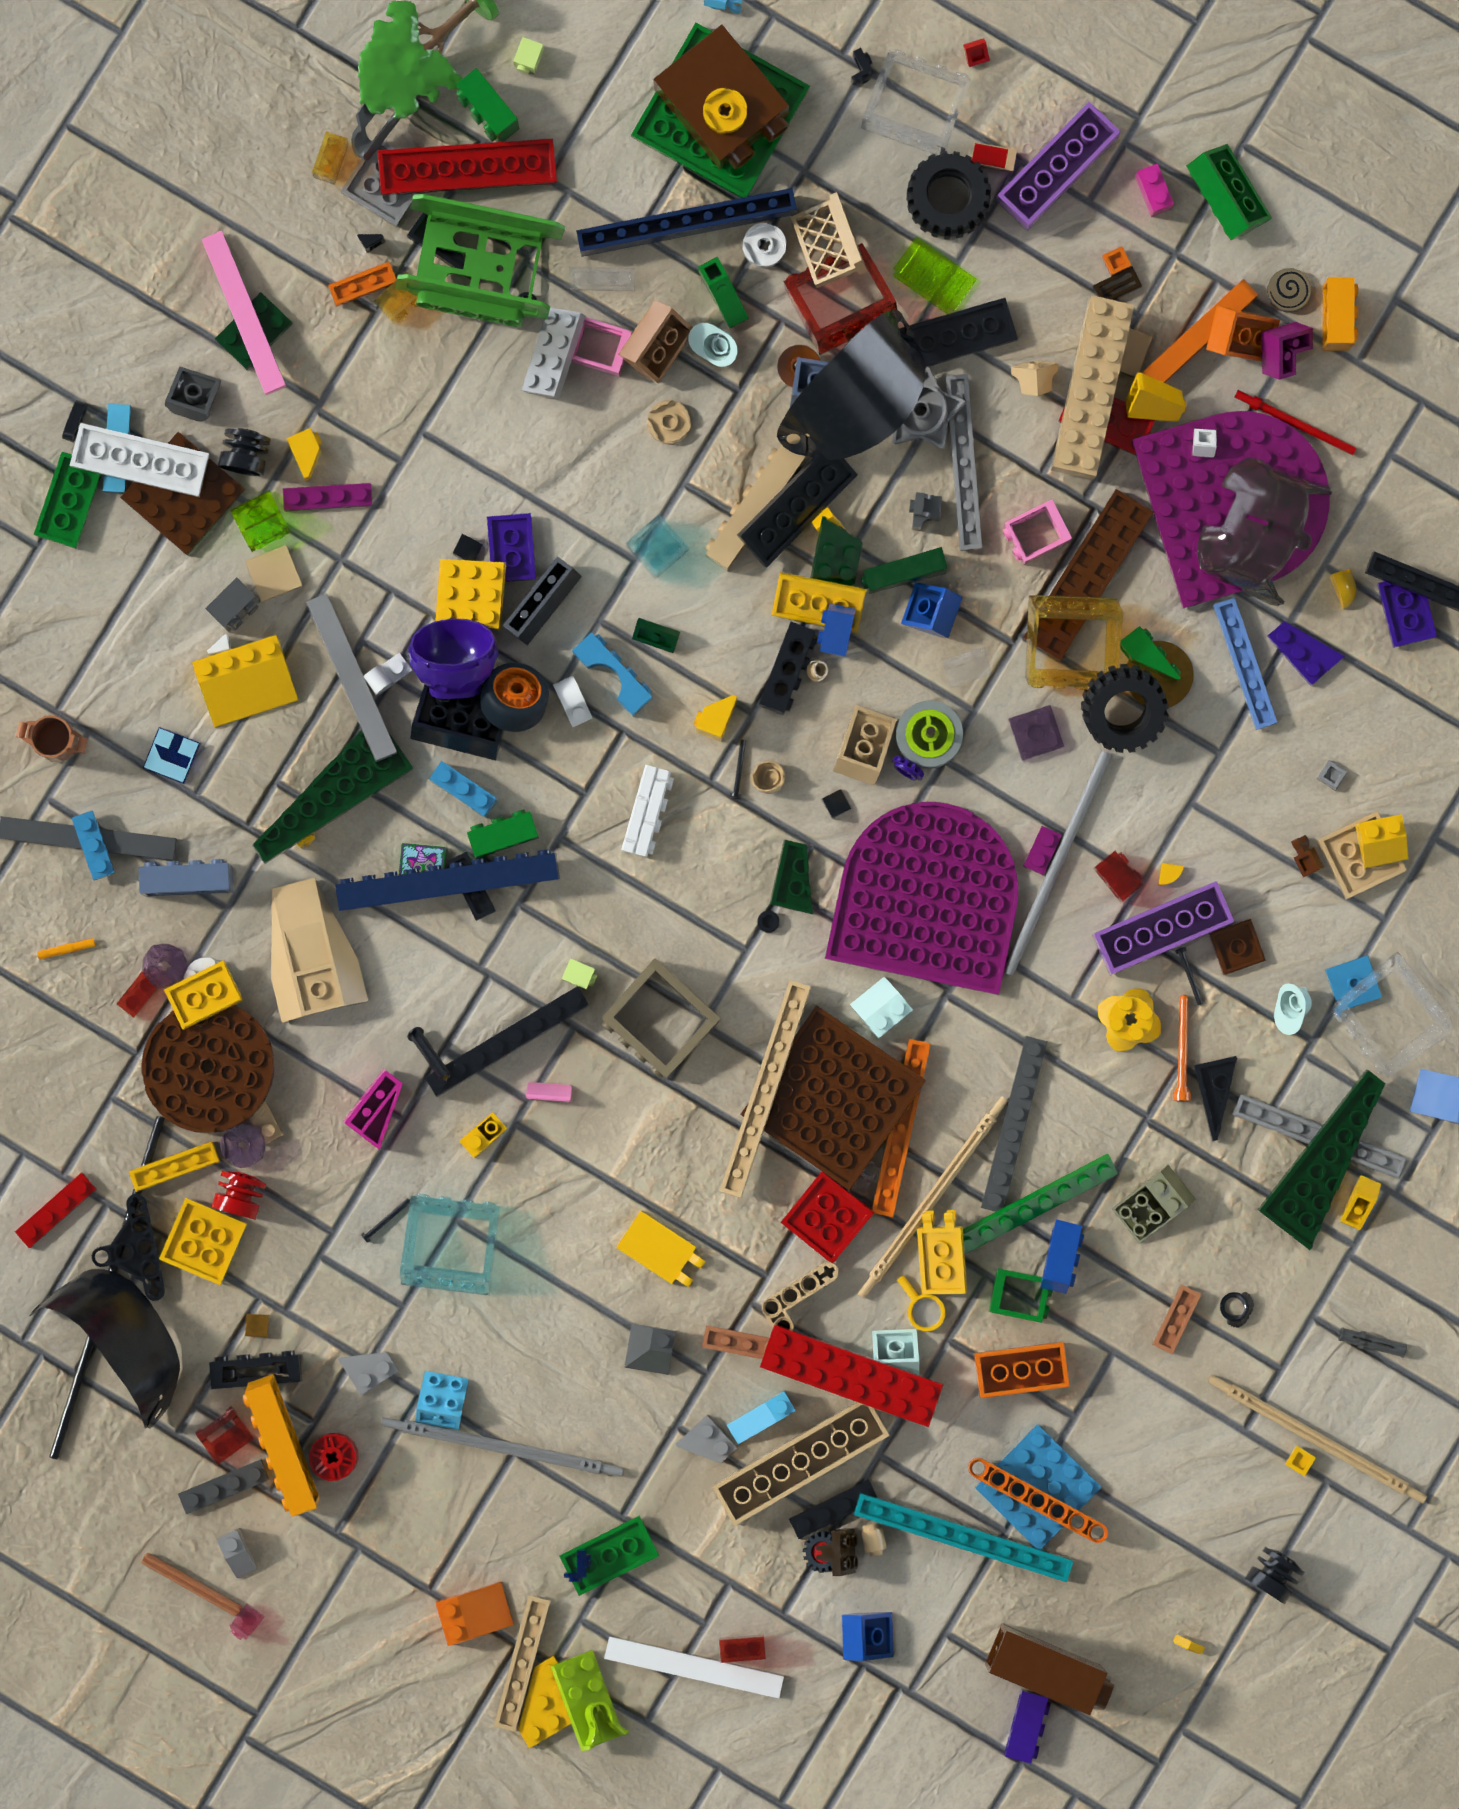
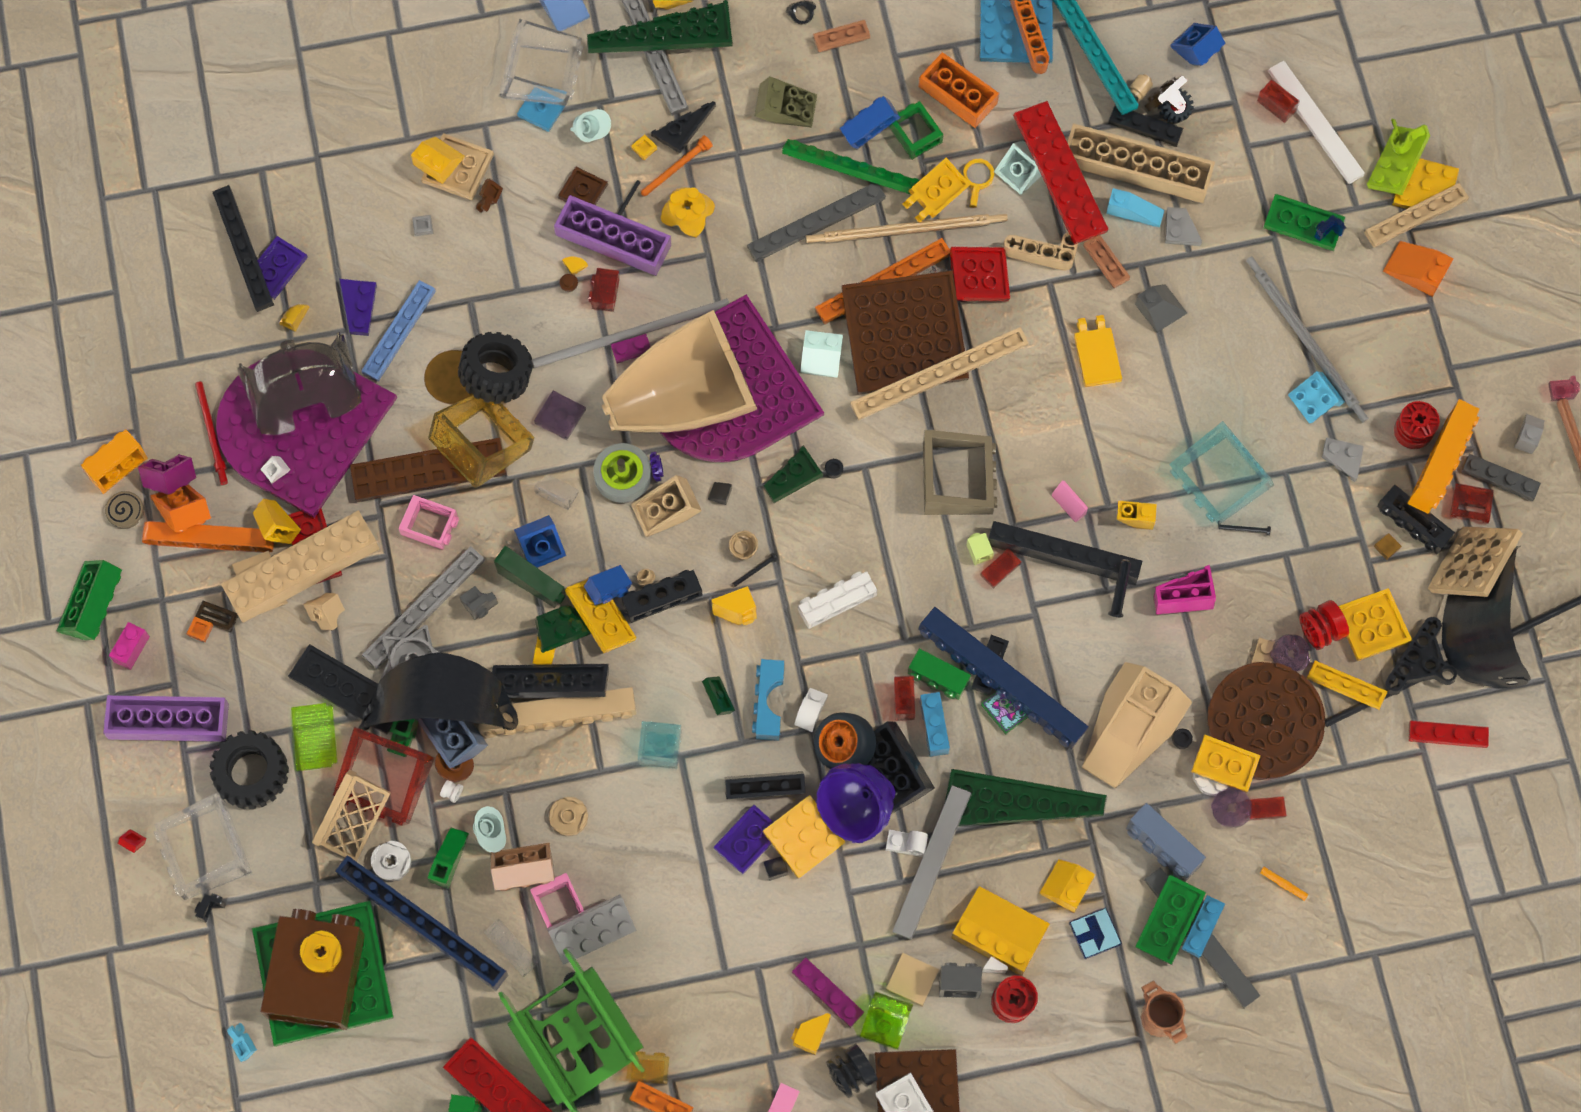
camera: 135 degrees left, 15 degrees down
(122, 823) = (1170, 919): none -> green plate
(164, 1386) = (1475, 553): none -> tan piece
(165, 634) = (1014, 988): none -> red wheel
(230, 770) = (1067, 884): none -> yellow slope
(260, 985) = (1182, 738): none -> black tile
(507, 784) = (904, 698): none -> clear red brick
(545, 976) = (1000, 568): none -> clear red plate
(777, 344) = (451, 791): none -> white wheel
(951, 848) = (680, 383): none -> tan panel
(994, 157) = (196, 768): red tile -> none
(1143, 653) = (445, 387): green slope -> none
(1155, 852) = (568, 282): none -> reddish brown plate
(1228, 1037) = (644, 147): none -> yellow plate

